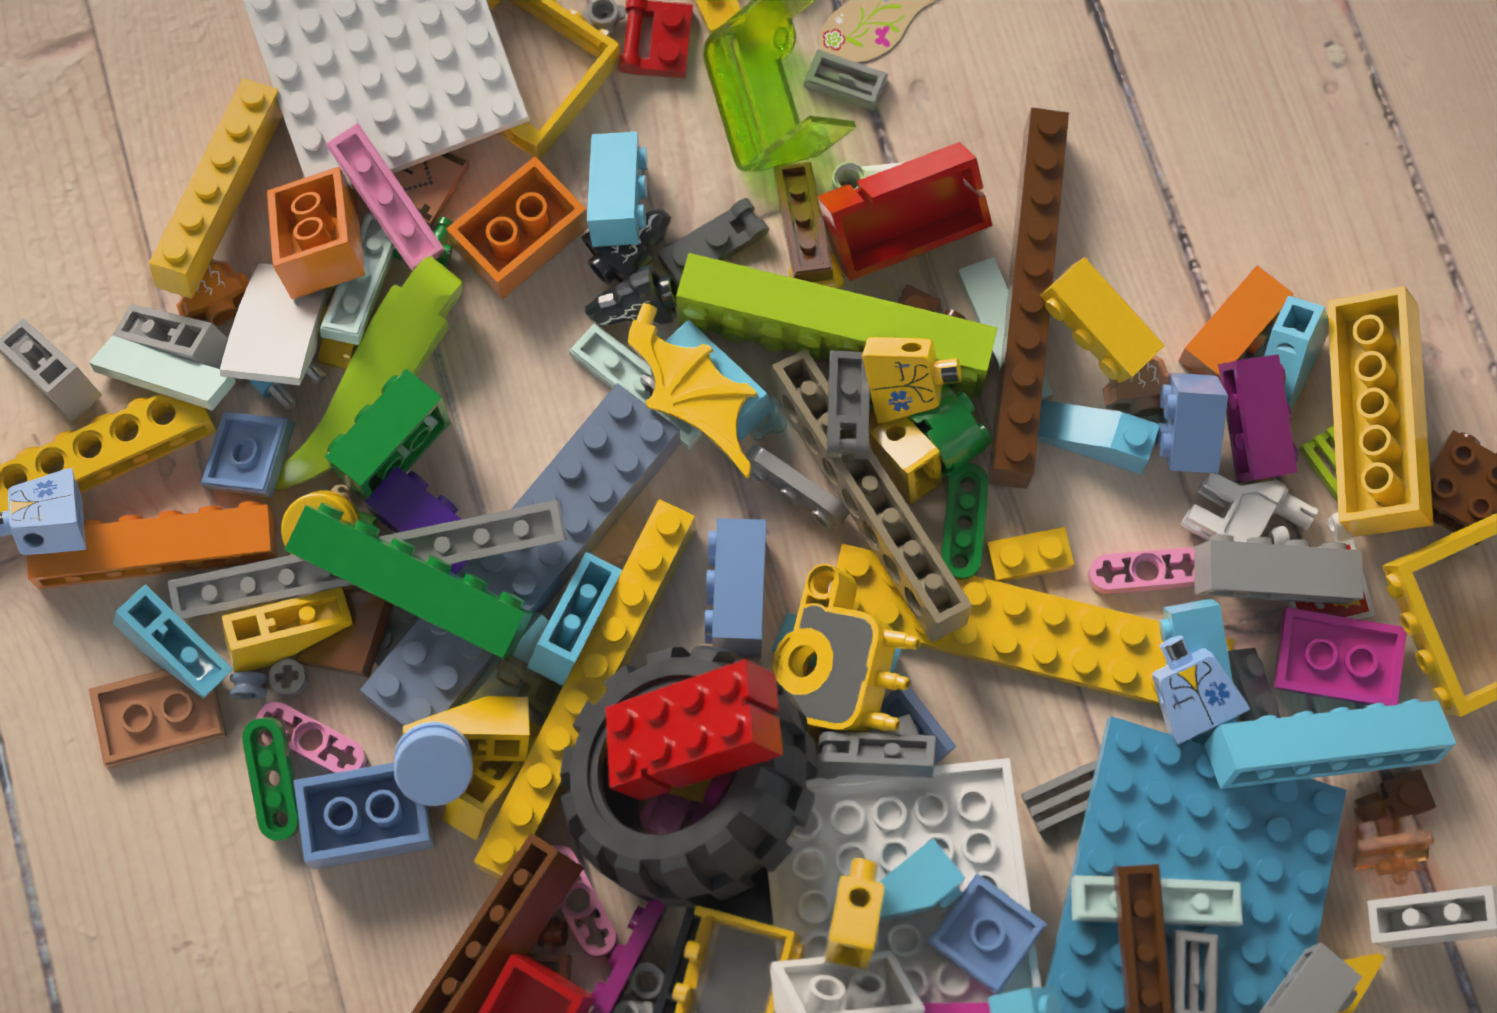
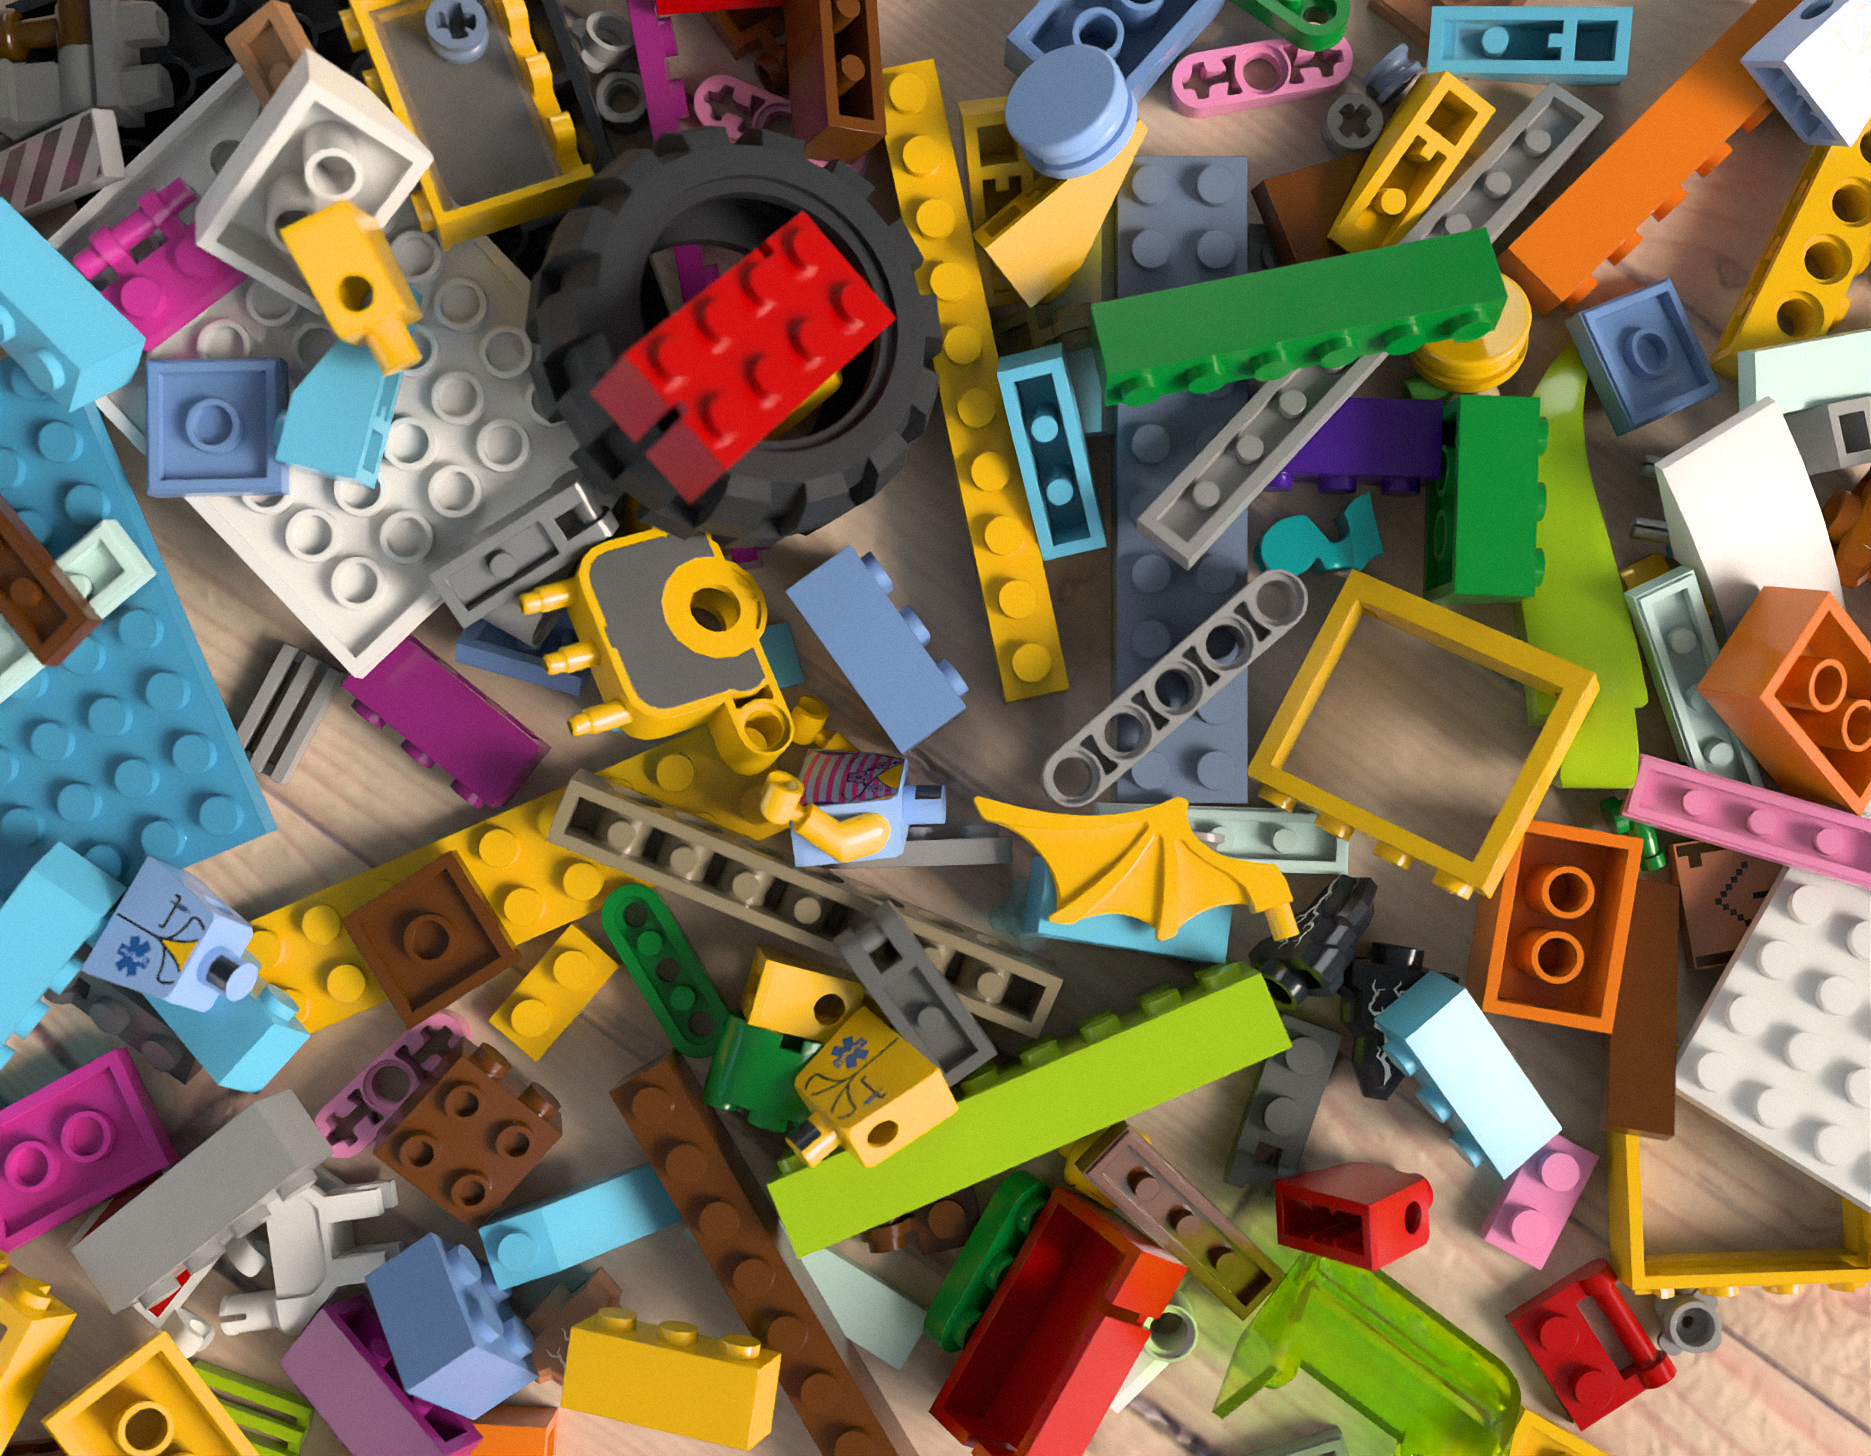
camera: 145 degrees right, 15 degrees up
(492, 491) = (1298, 543): none -> teal leg
(527, 138) = (1642, 1048): none -> reddish brown tile
(578, 343) = (1543, 671): none -> yellow window
(594, 443) = (1202, 674): none -> light grey beam
(631, 113) = (1538, 1200): none -> bright pink plate
(719, 167) = (1372, 1216): none -> red torso
(807, 527) = (846, 799): none -> torso
(913, 272) = (985, 1260): none -> green plate
(980, 715) = (448, 723): none -> magenta brick
(1071, 618) = (431, 939): none -> reddish brown tile
(1121, 513) = (470, 1132): none -> reddish brown brick

